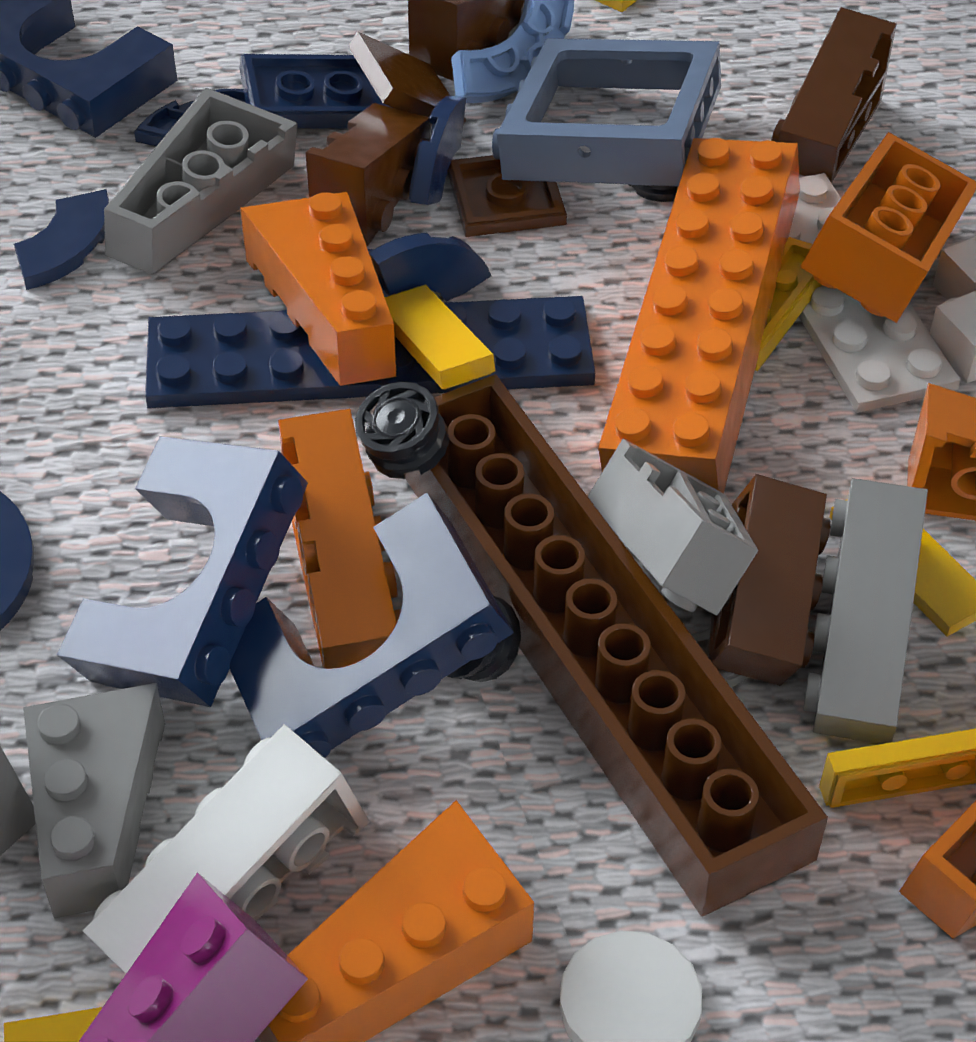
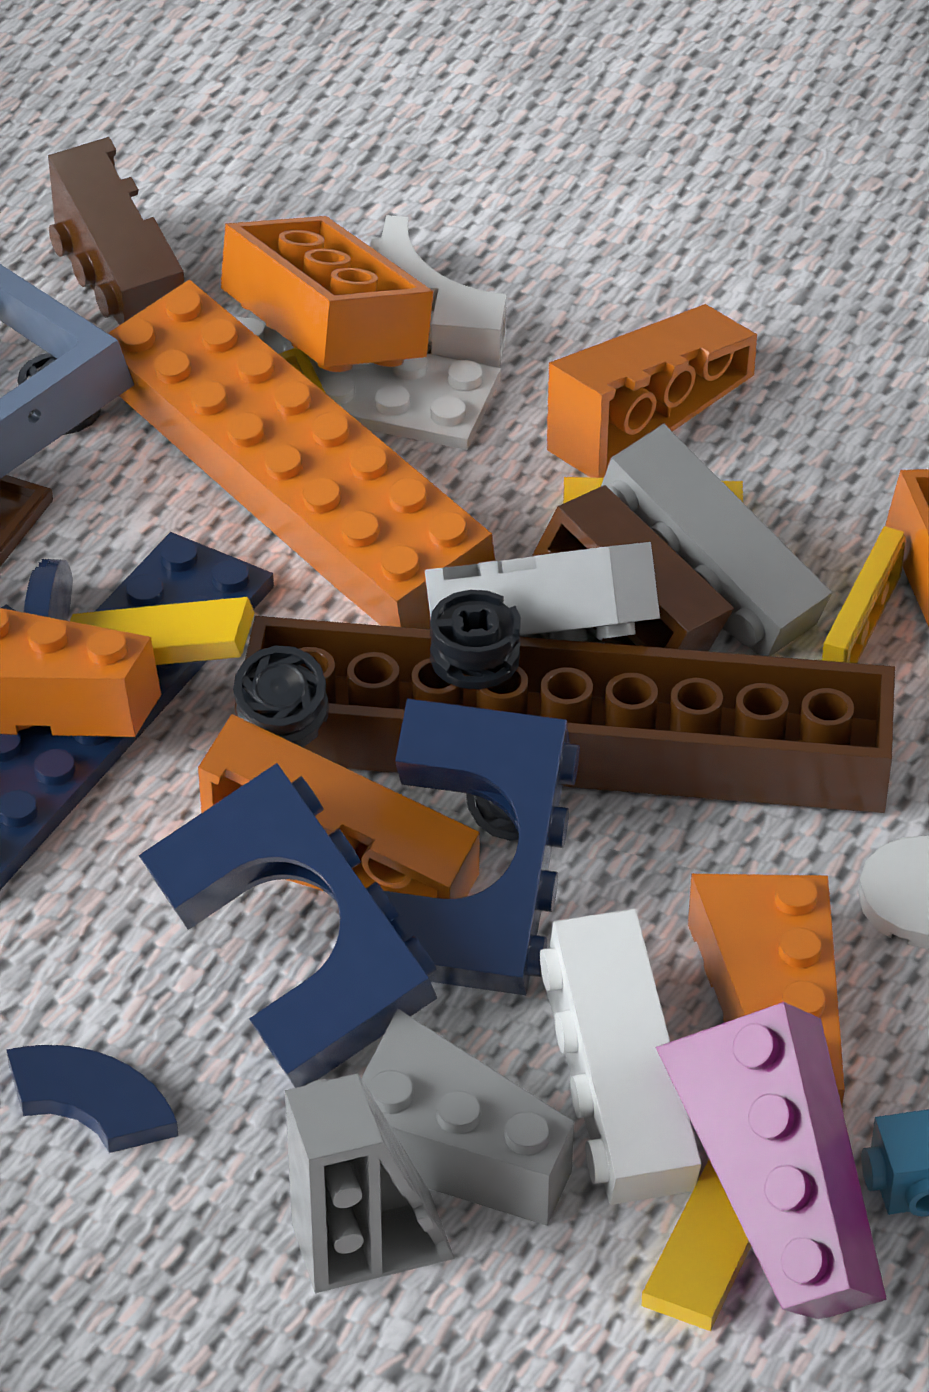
camera: 55 degrees left, 5 degrees down
(572, 506) = (475, 637): none -> black wheel

